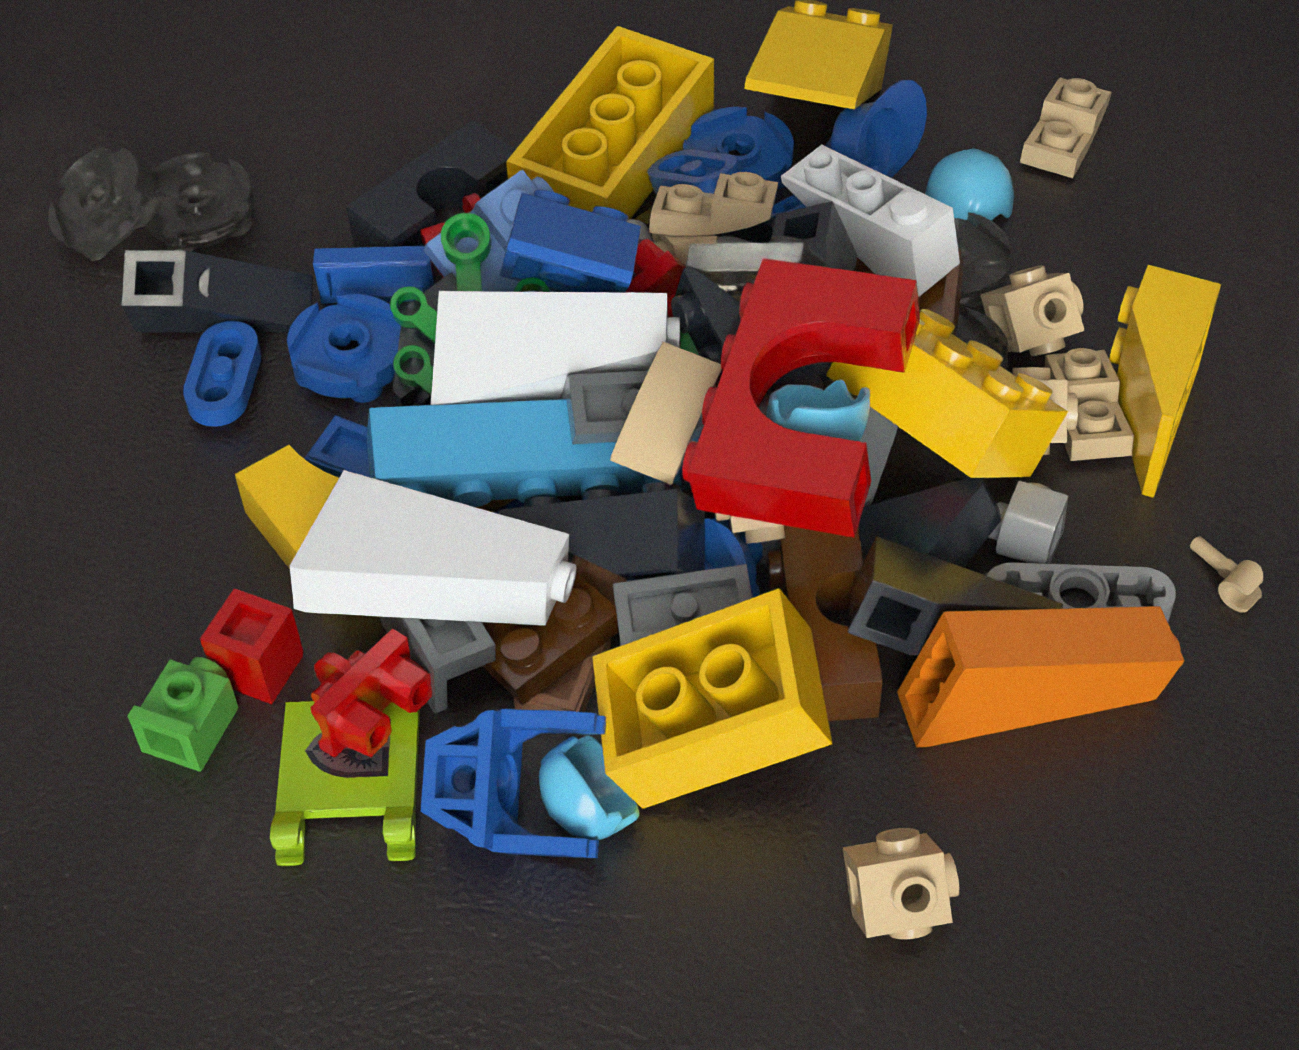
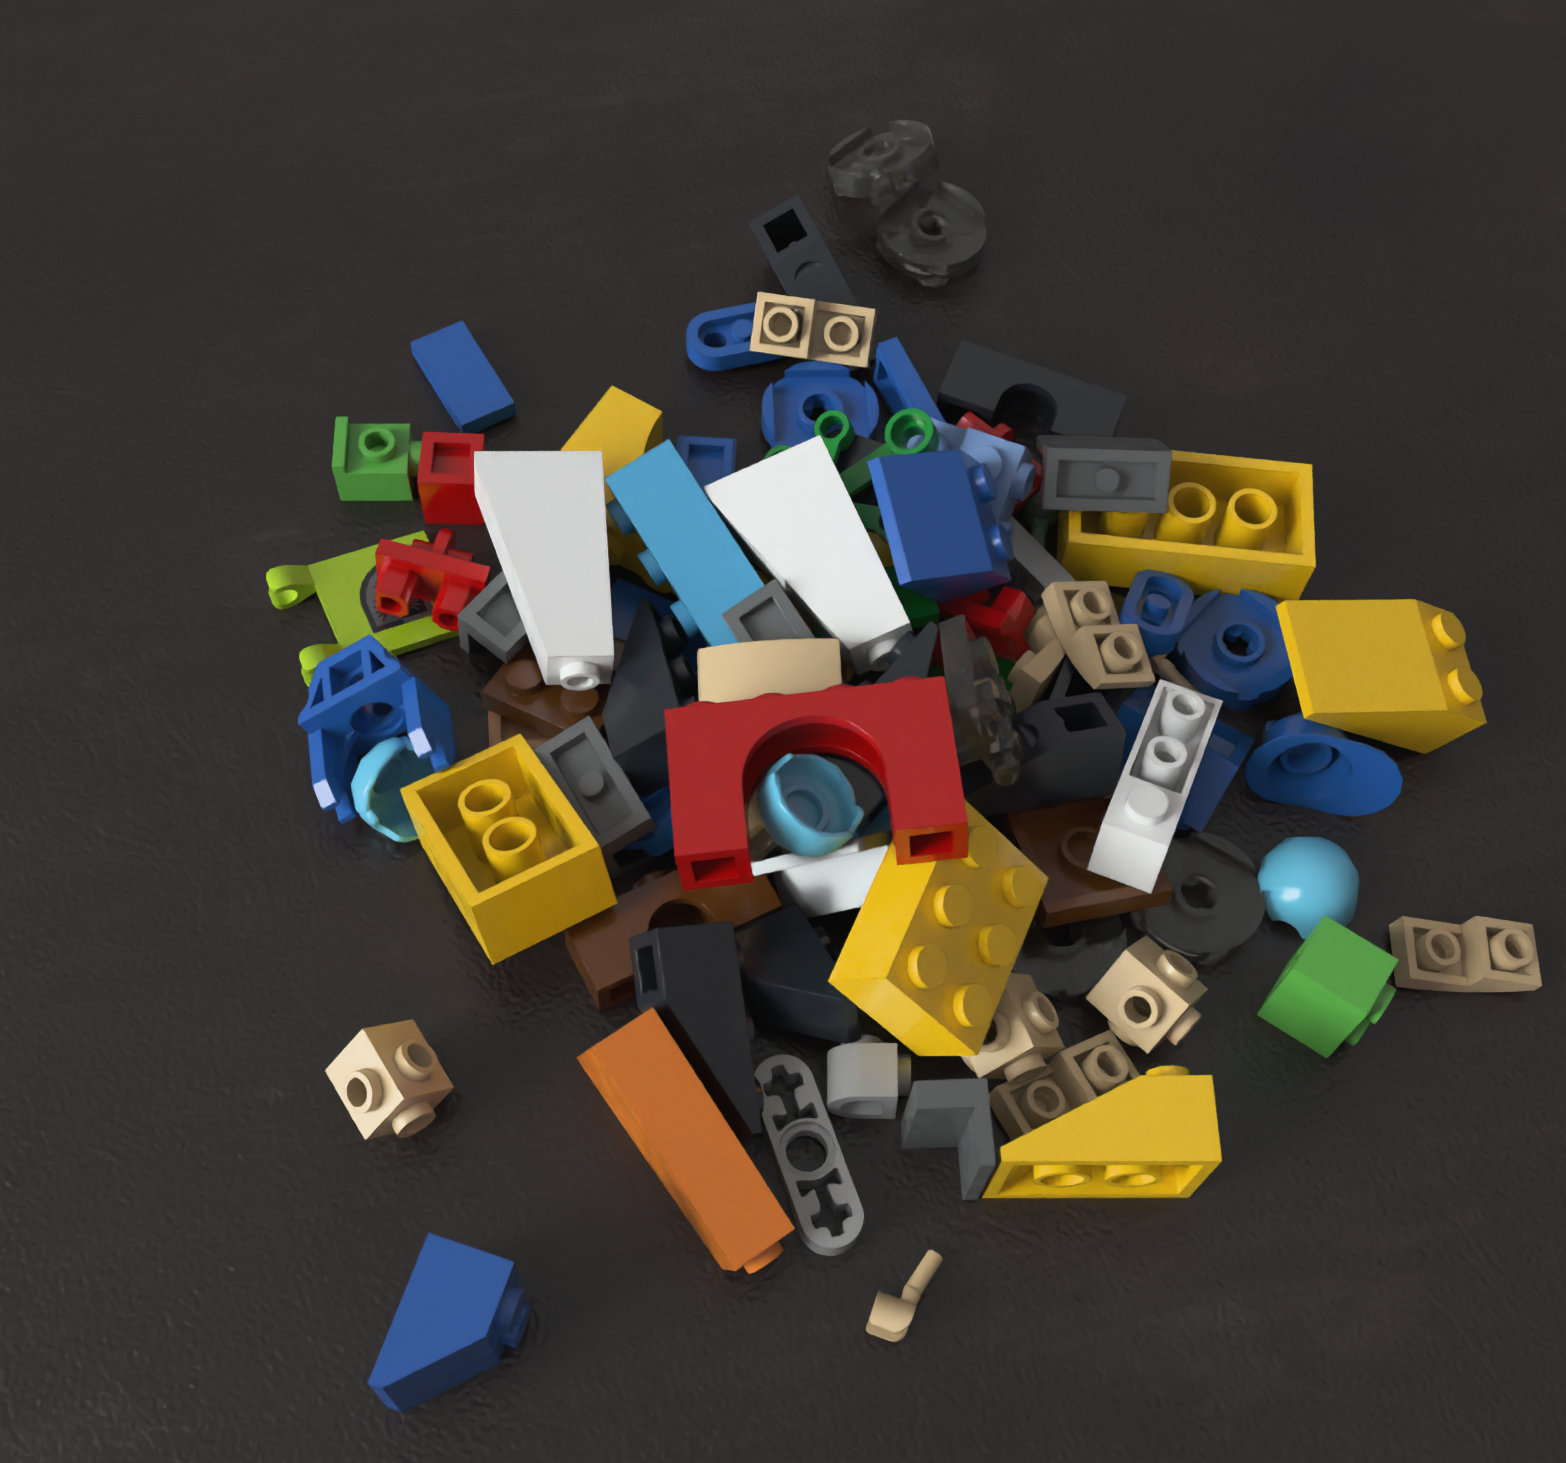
camera: 60 degrees right, 10 degrees up
(123, 615) = (463, 378): none -> blue tile
(266, 306) = (813, 330): none -> tan slope
(562, 140) = (1104, 474): none -> dark grey panel
(1077, 196) = (1330, 988): none -> bright green brick
(1119, 464) = (953, 1116): none -> dark grey panel
(1166, 892) = (449, 1323): none -> blue slope

